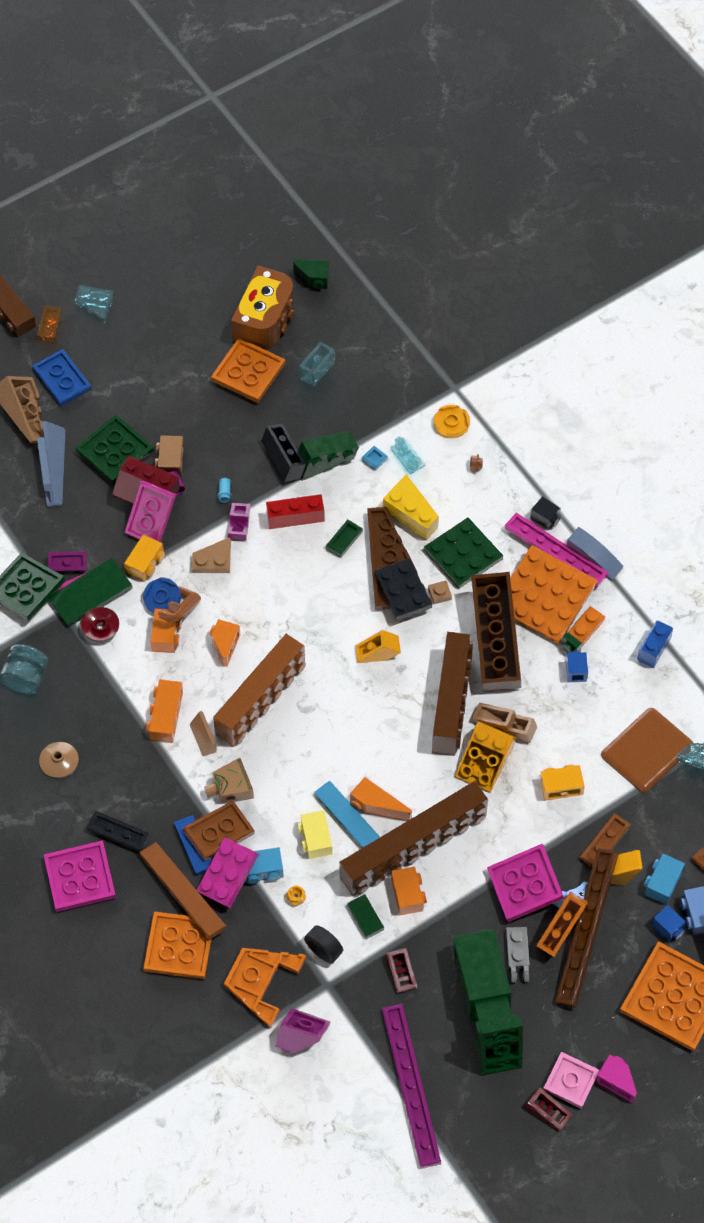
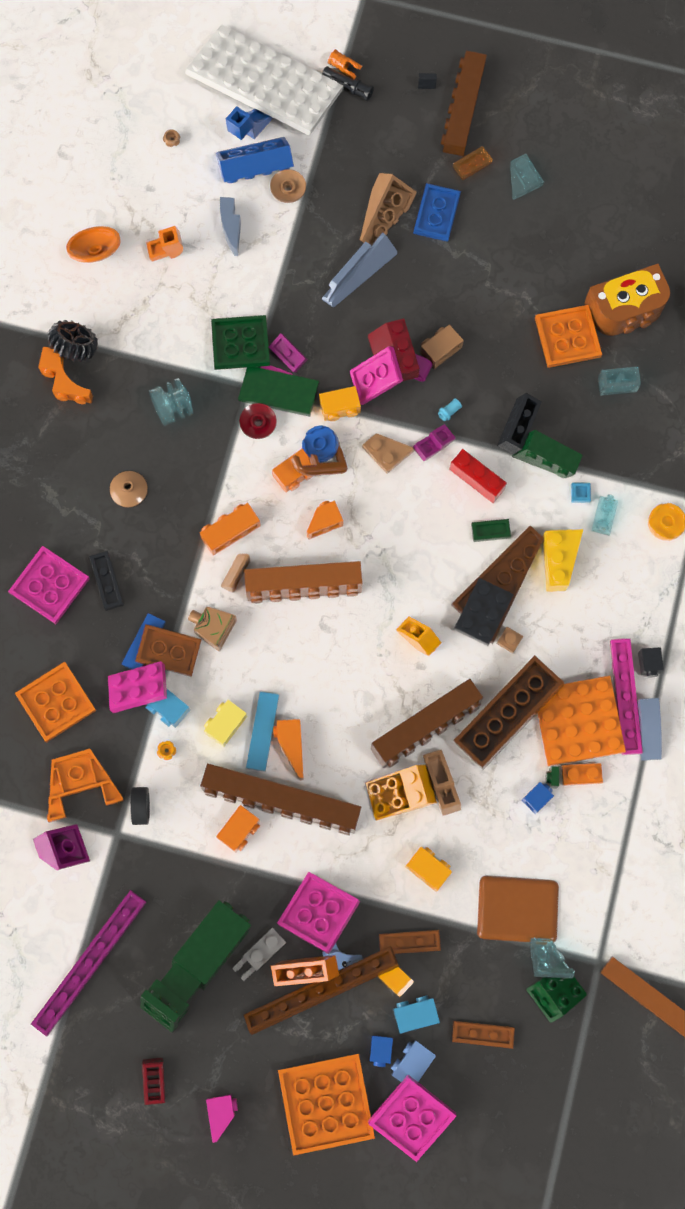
camera: 45 degrees right, 15 degrees up
(111, 446) = (412, 299): dark green plate -> none
(182, 891) = (97, 667): dark orange tile -> none
(365, 916) = (193, 815): dark green tile -> none
(404, 954) = (182, 863): slope -> none
(463, 552) = (560, 628): dark green plate -> none
(476, 463) = (647, 571): dark orange plate -> none
(571, 1080) = (190, 1080): bright pink plate -> none
(655, 643) = (612, 841): blue brick -> none

